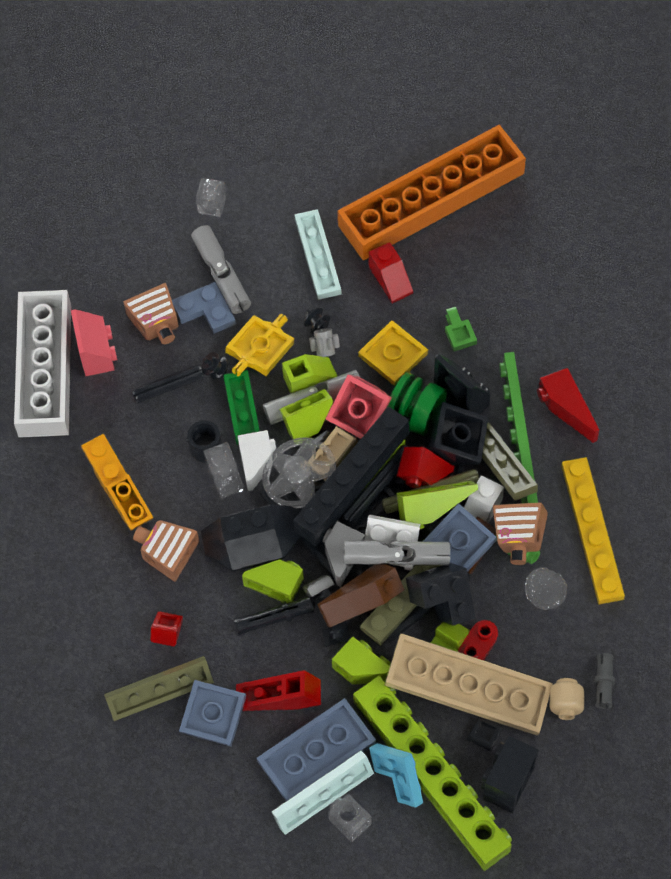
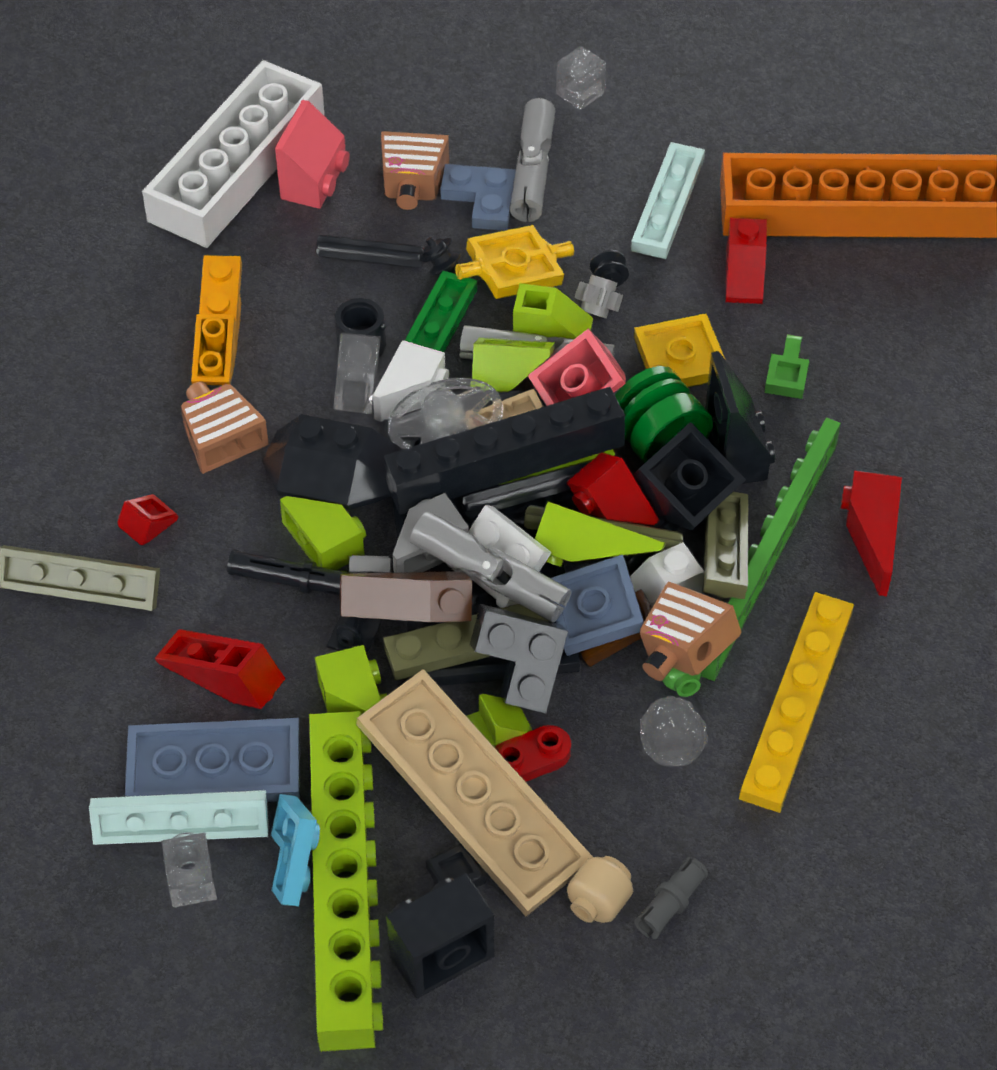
camera: 30 degrees right, 10 degrees down
(212, 713) = (118, 642): sand blue plate -> none

